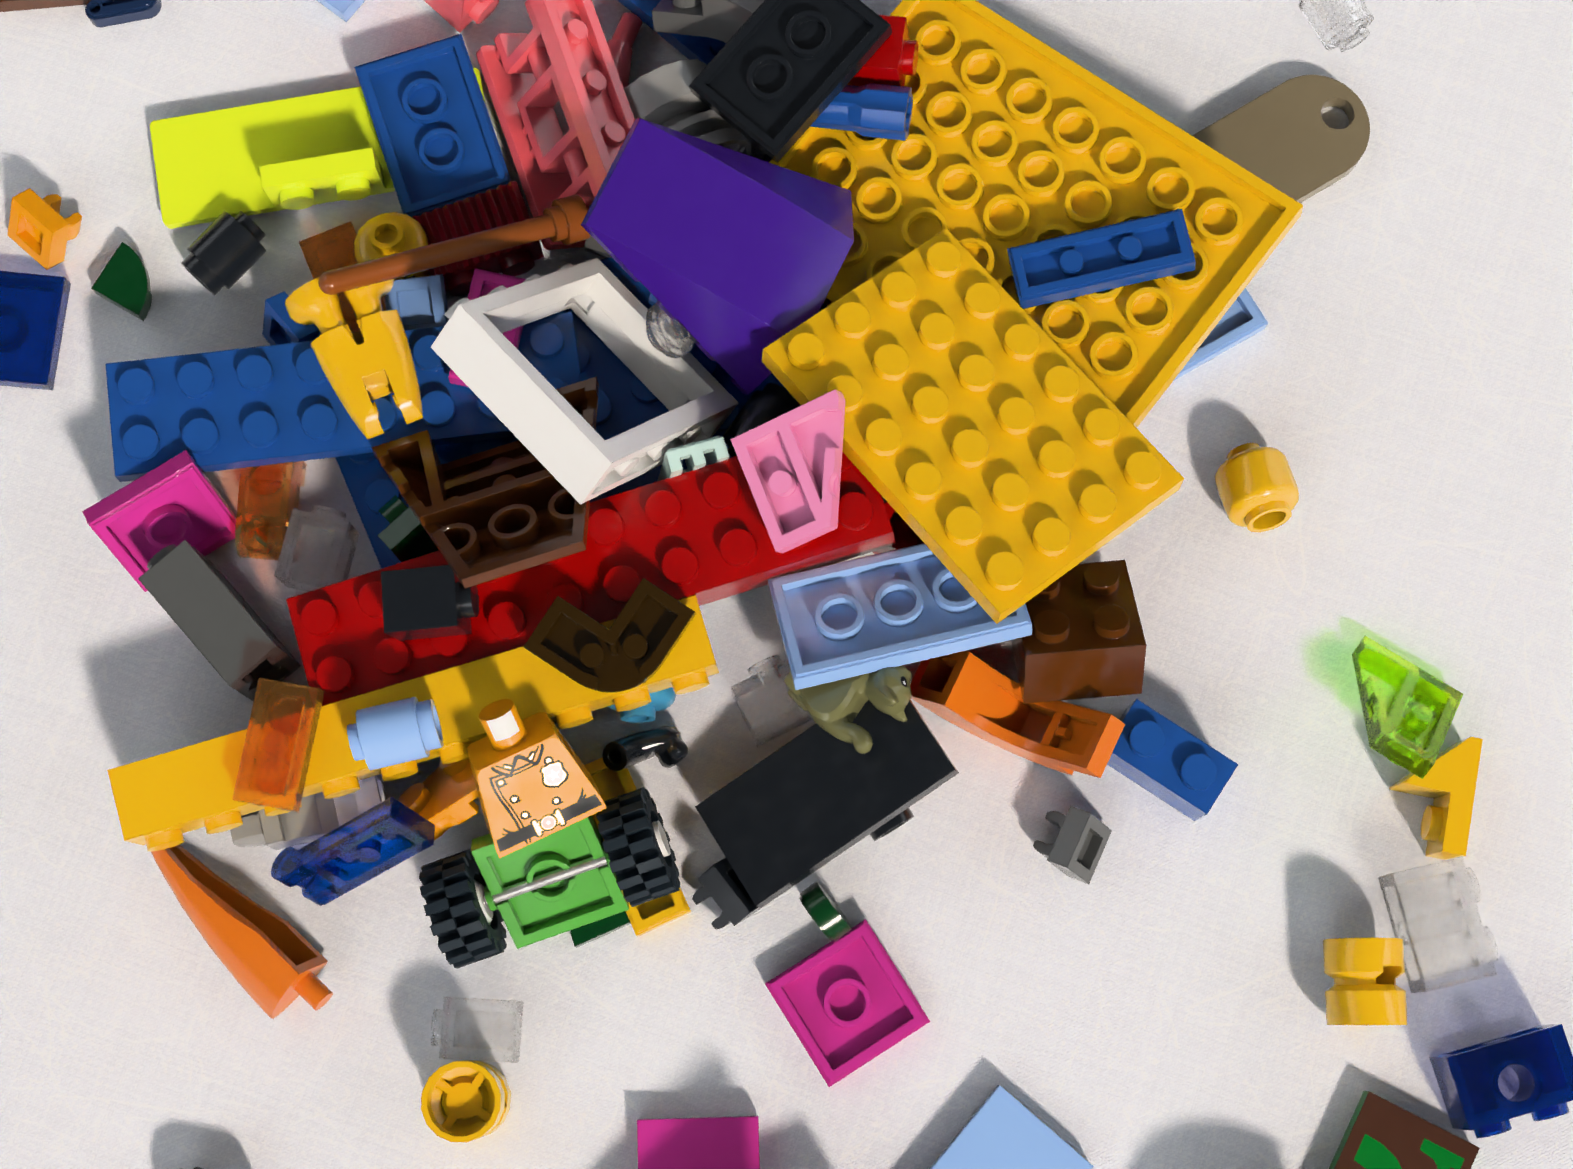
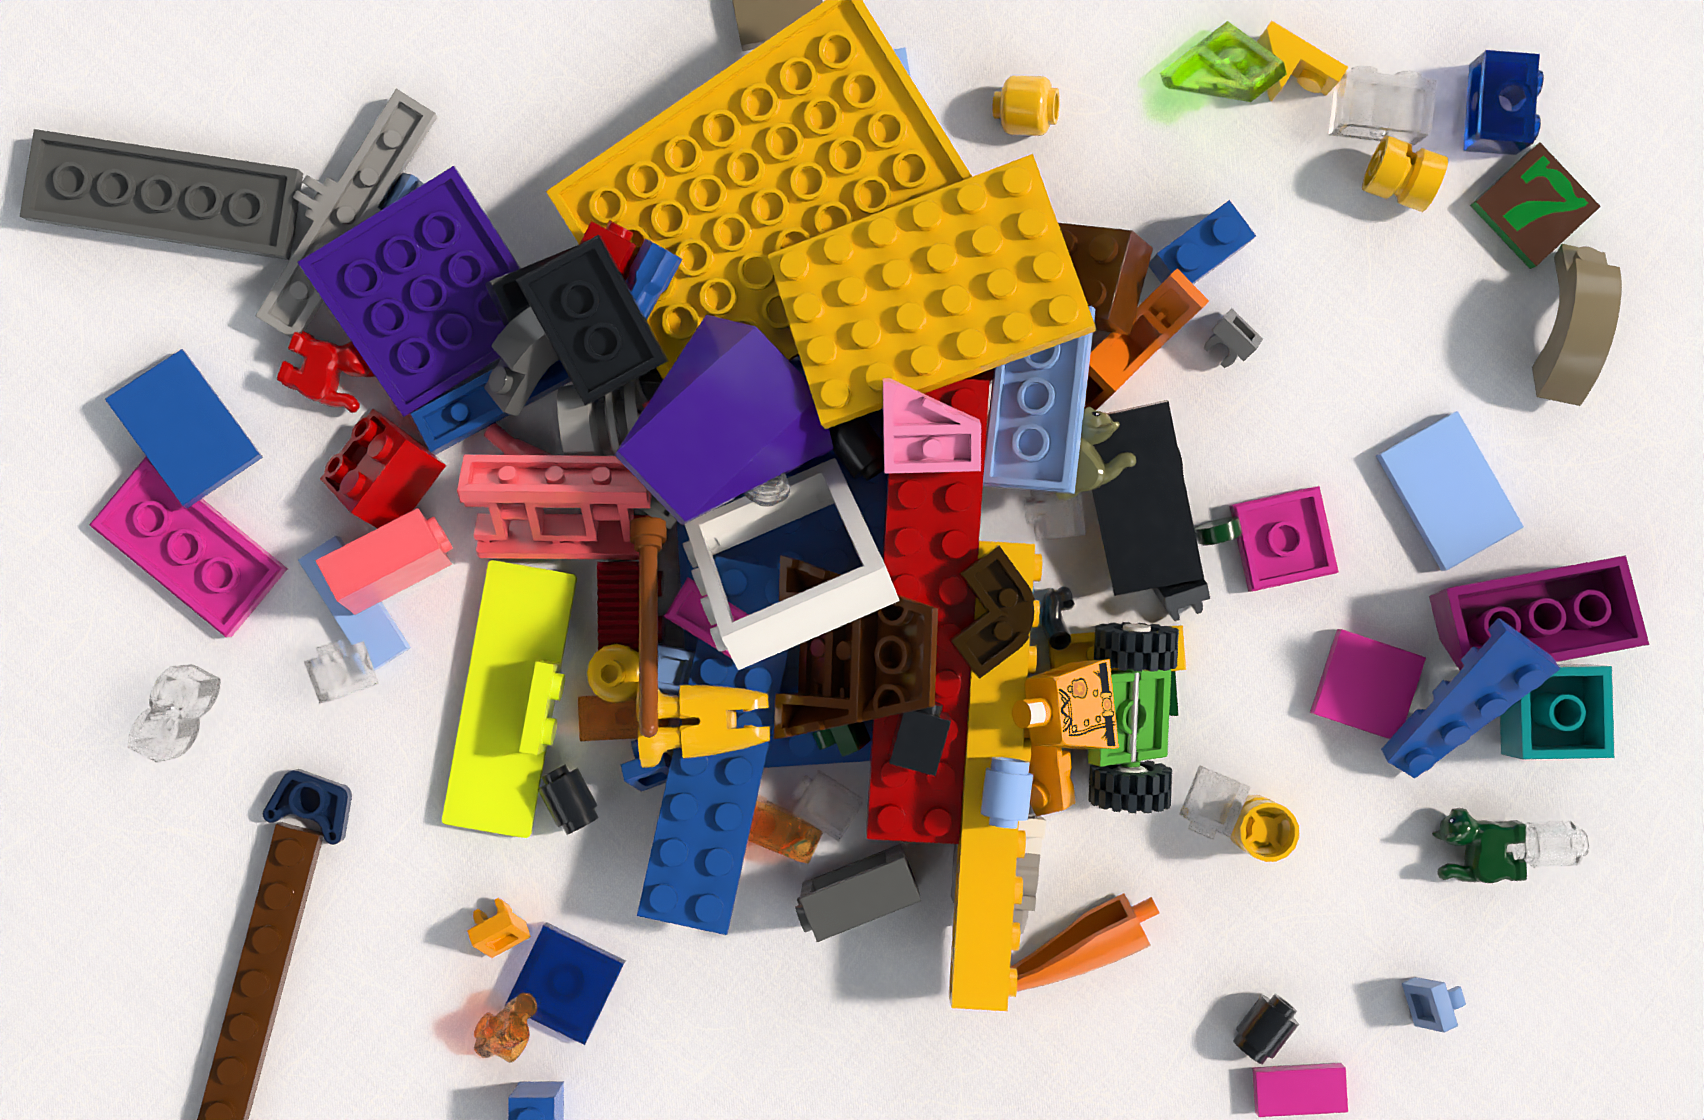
camera: 70 degrees left, 10 degrees up
(126, 283) = (563, 880): dark green tile -> none
(162, 510) = (766, 909): dark pink tile -> none
(278, 745) = (983, 879): clear orange plate -> none
(354, 852) = (1064, 849): clear blue plate -> none
(432, 125) = (528, 609): blue tile -> none
(693, 453) = (877, 507): light aqua tile -> none
(1101, 259) = (835, 148): blue tile -> none

